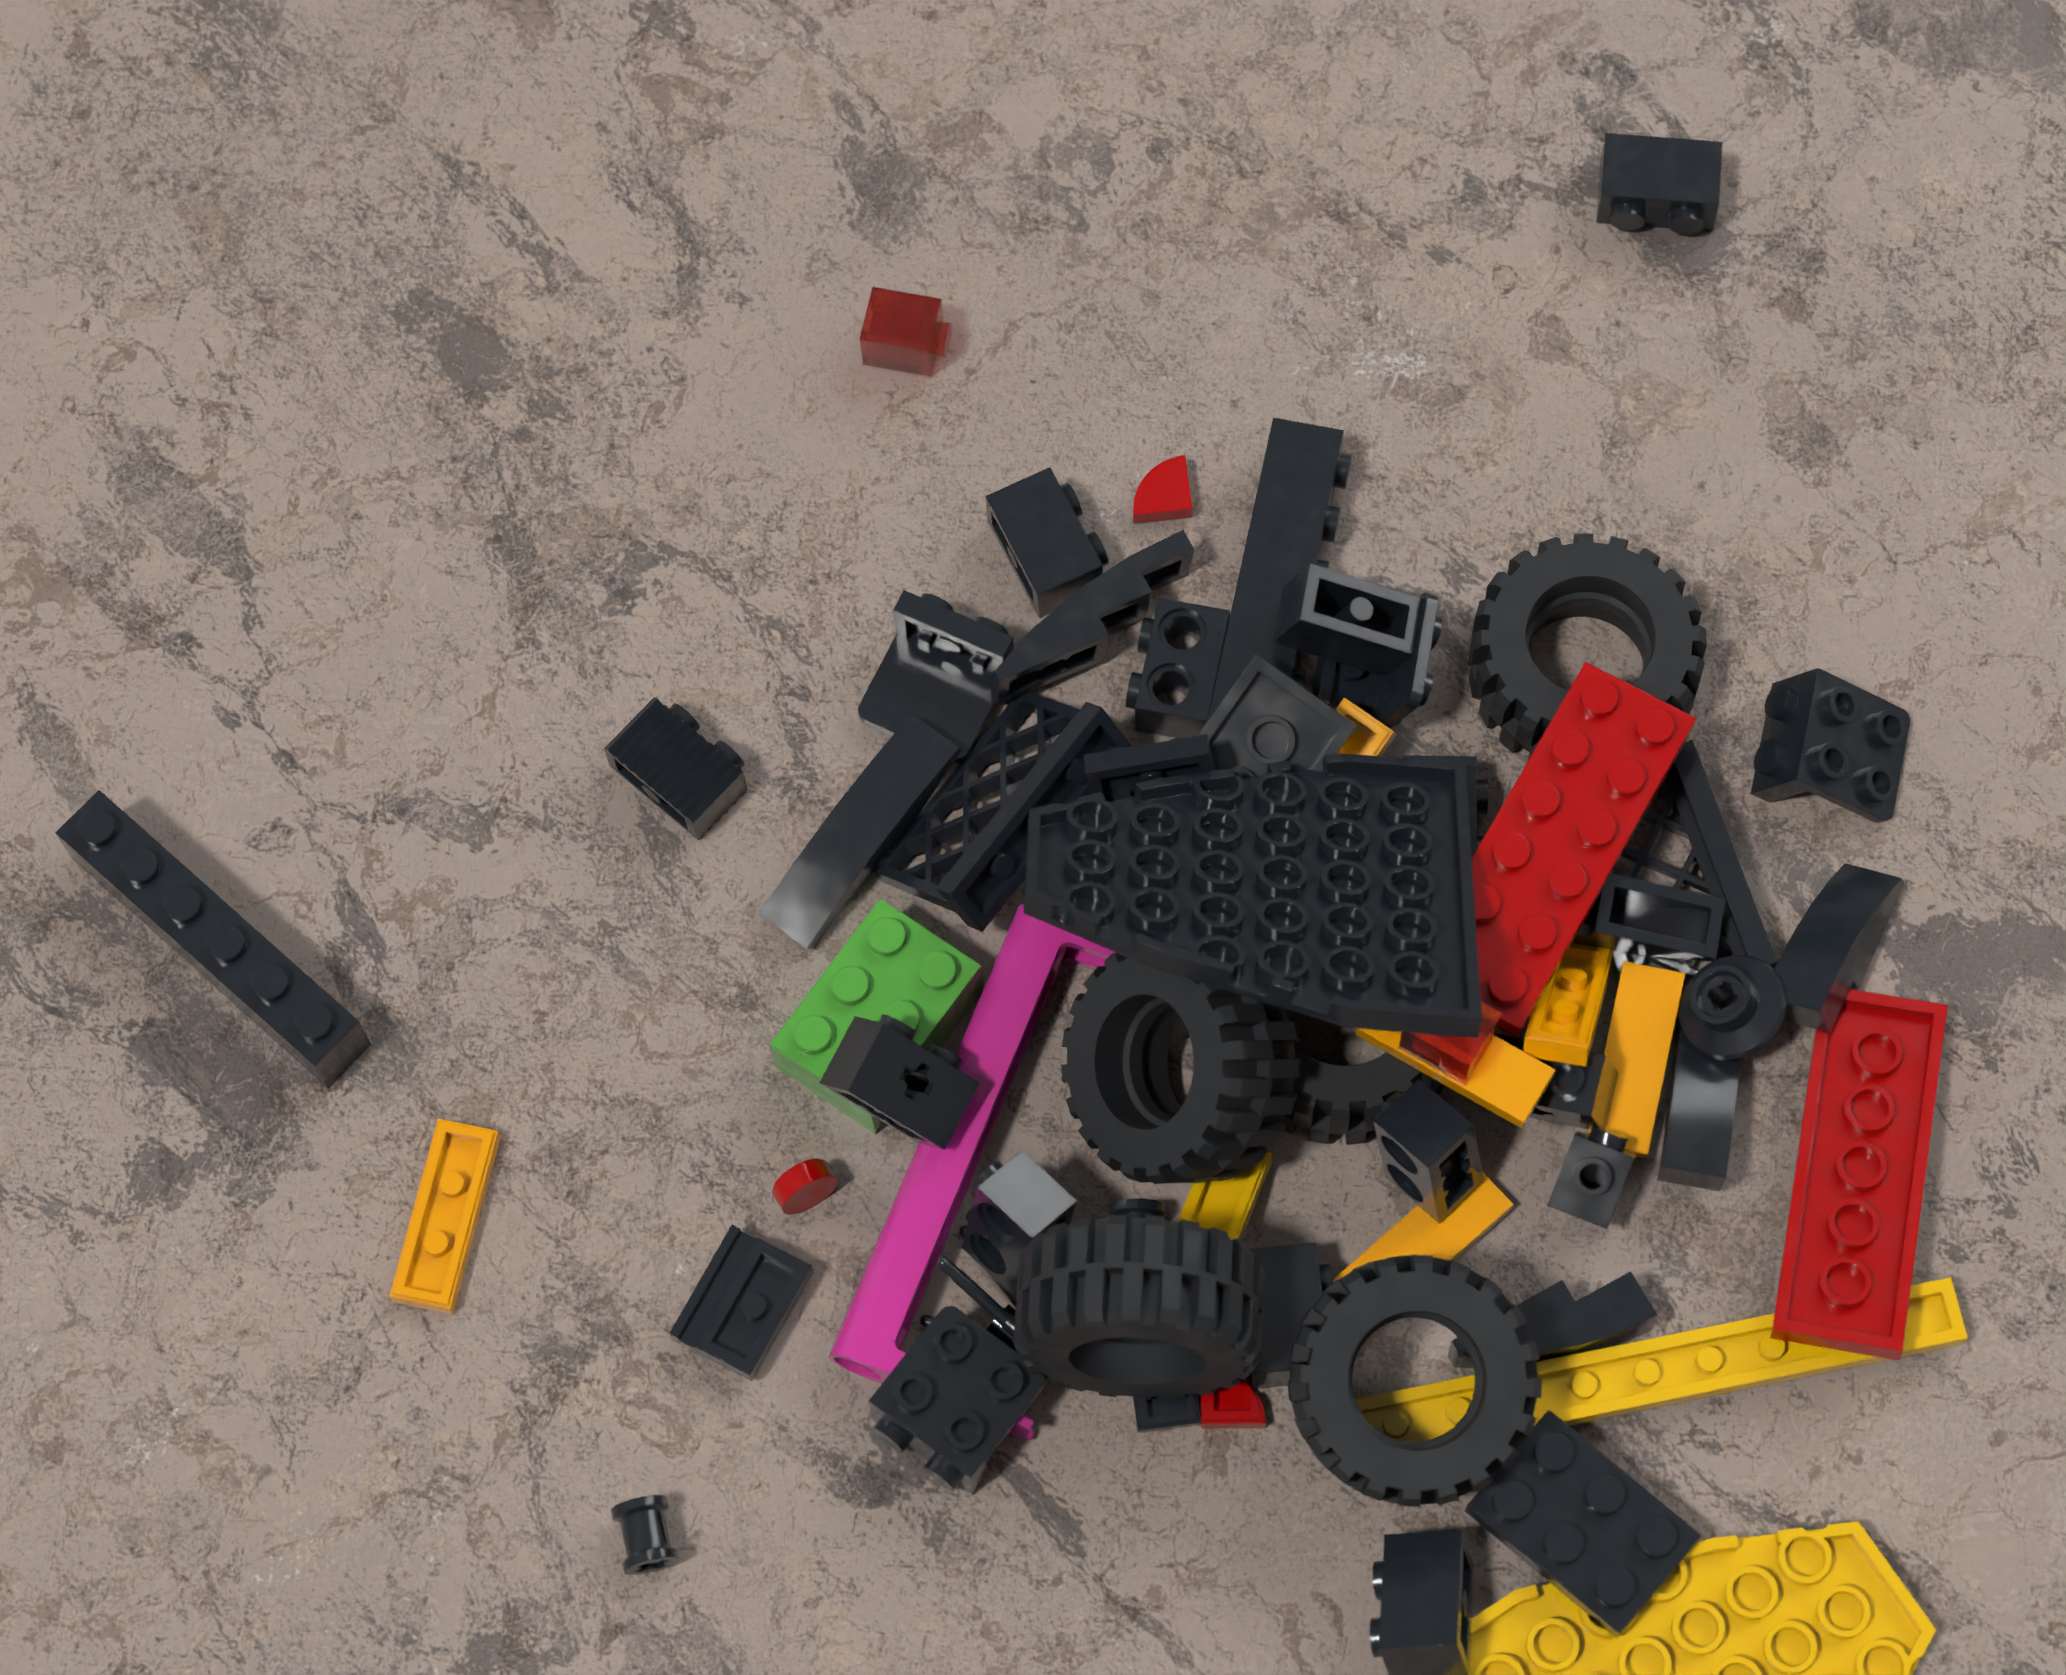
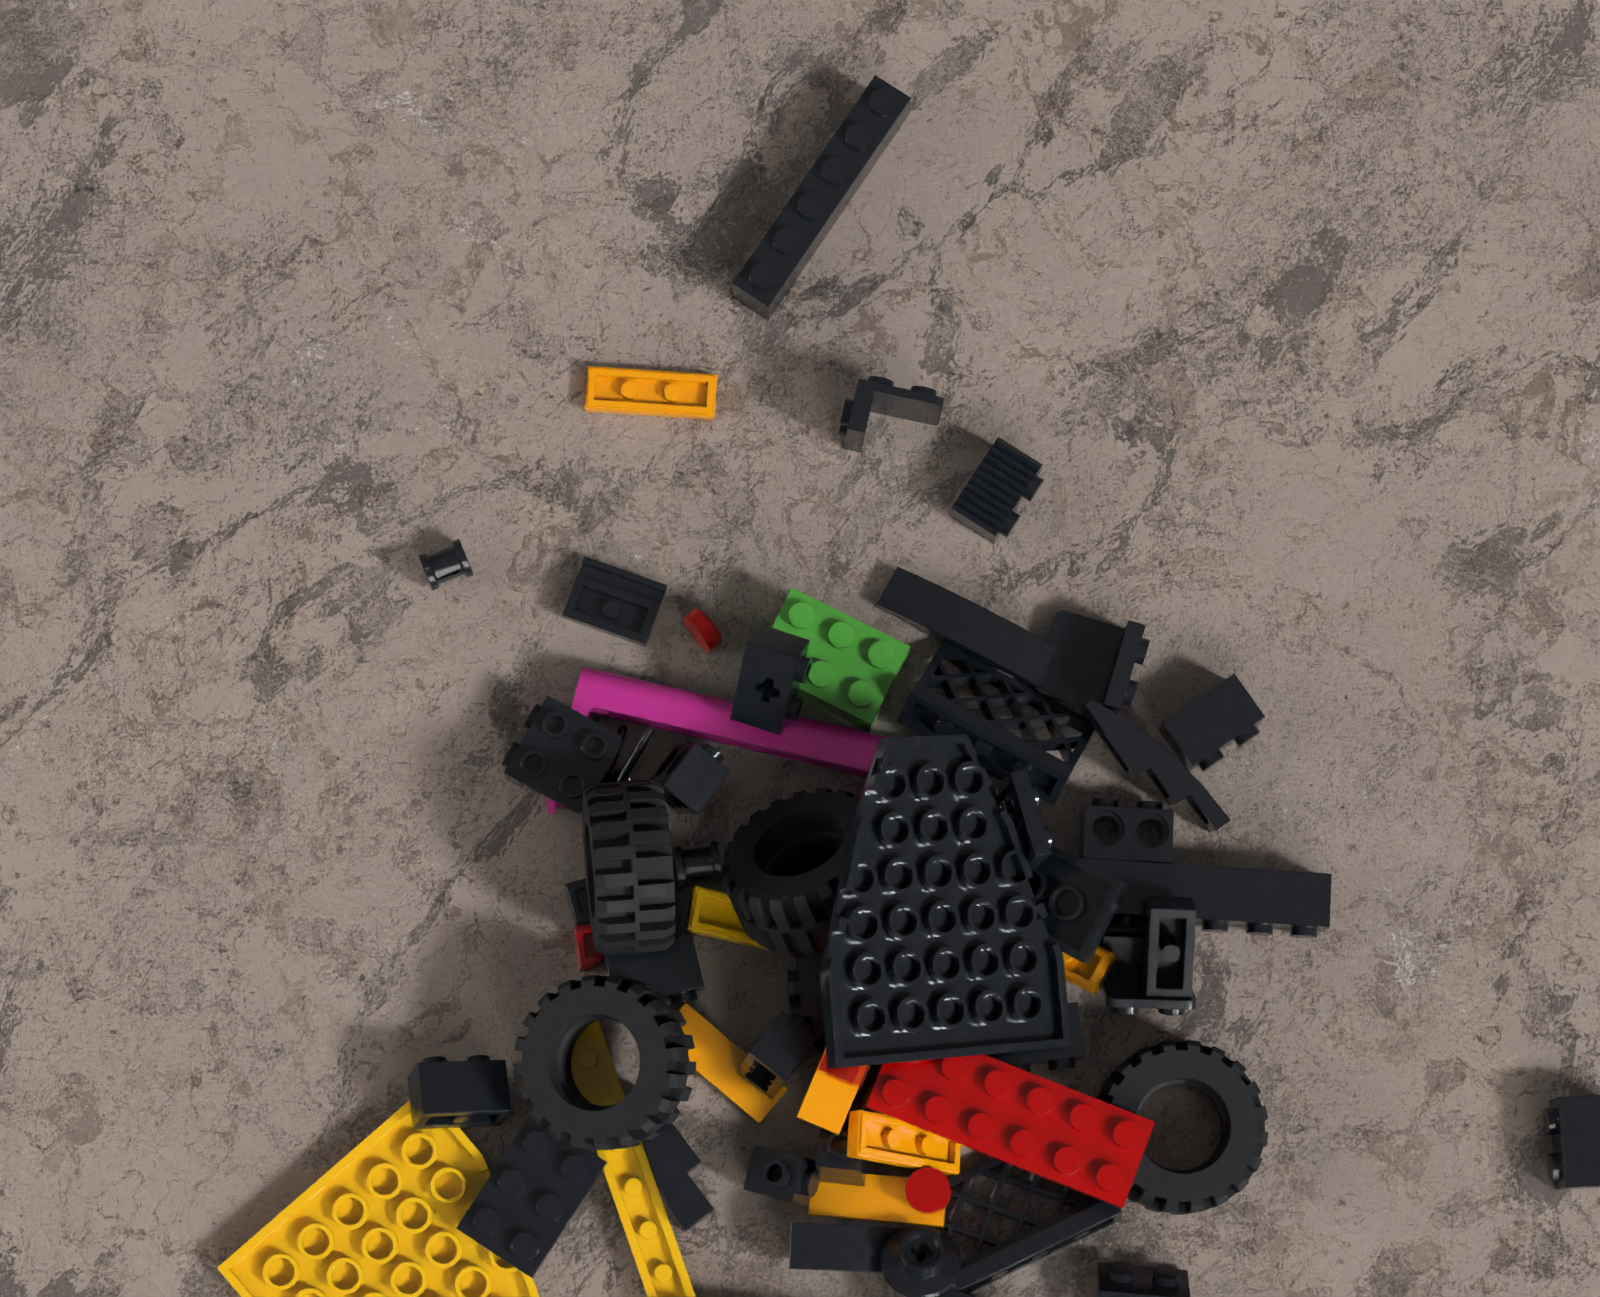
camera: 75 degrees right, 10 degrees up
(531, 918) = (883, 397): none -> black bracket
(904, 332) = (1363, 596): clear red brick -> none
(1164, 493) = (1268, 804): red tile -> none
(1636, 983) = (928, 1190): none -> red tile
(1653, 920) = (979, 1200): black slope -> none

